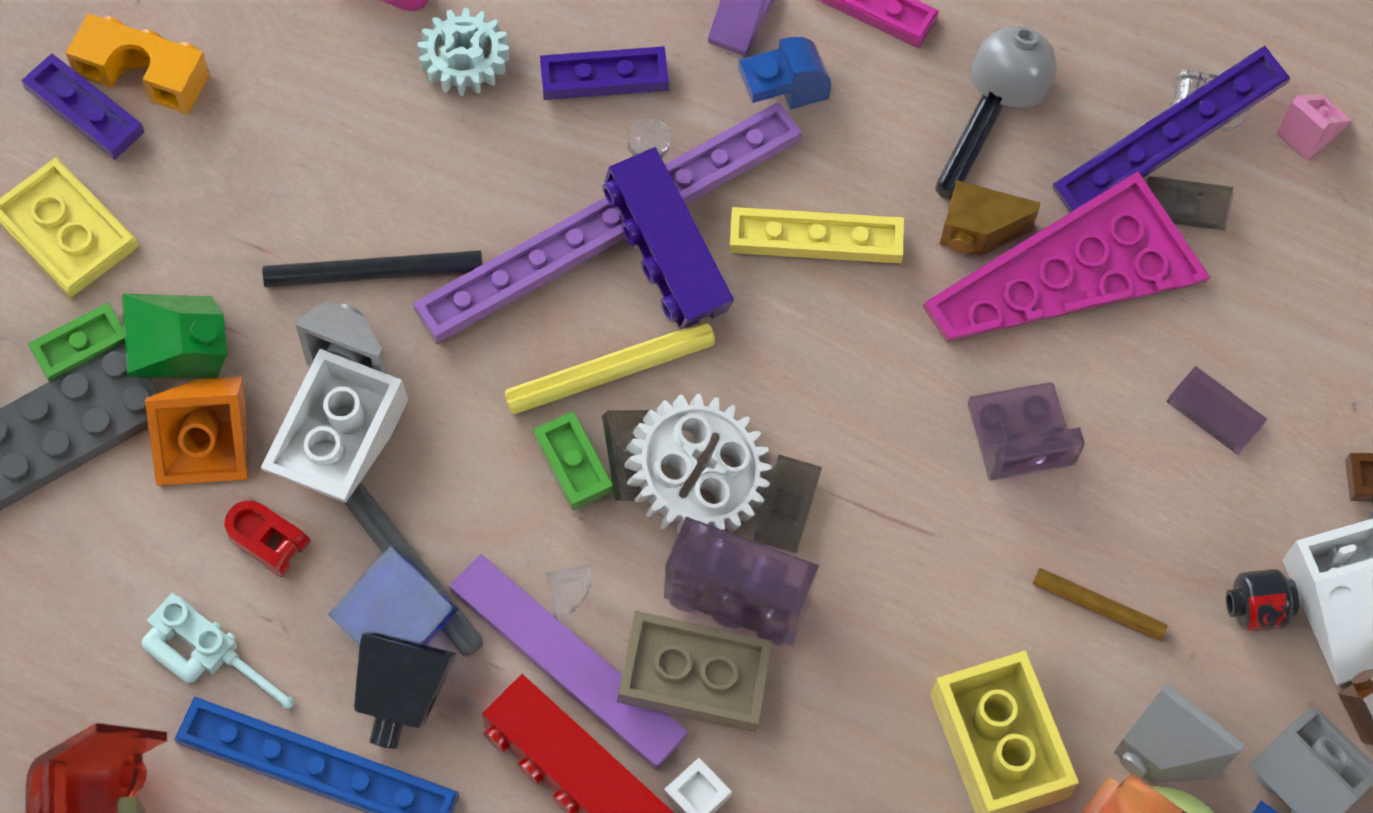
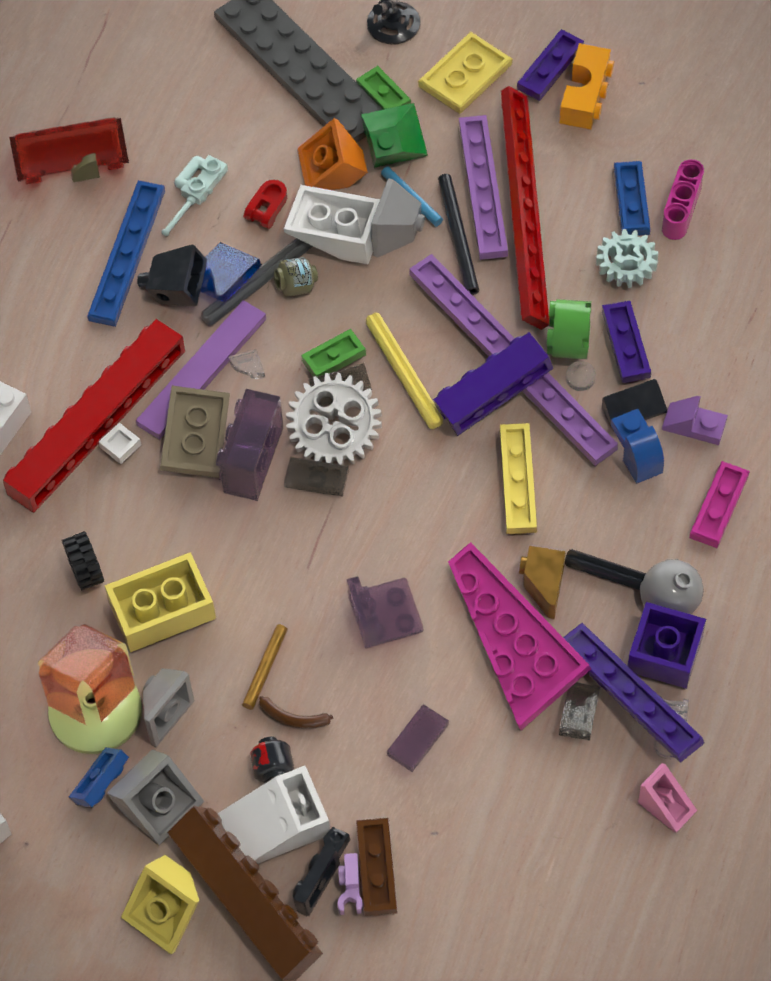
camera: 90 degrees right, 5 degrees down
(280, 330) = (426, 209): none -> dark azure bar
(293, 223) = (483, 187): none -> medium lavender plate
(328, 170) = (525, 209): none -> red plate
(350, 37) = (632, 197): none -> blue tile
(420, 502) = (295, 276): none -> olive head
(587, 128) = (570, 329): none -> bright green brick
(710, 80) = (644, 396): none -> black slope
(1101, 83) = (666, 645): none -> dark purple brick
(1186, 574) = (291, 719): none -> reddish brown piece

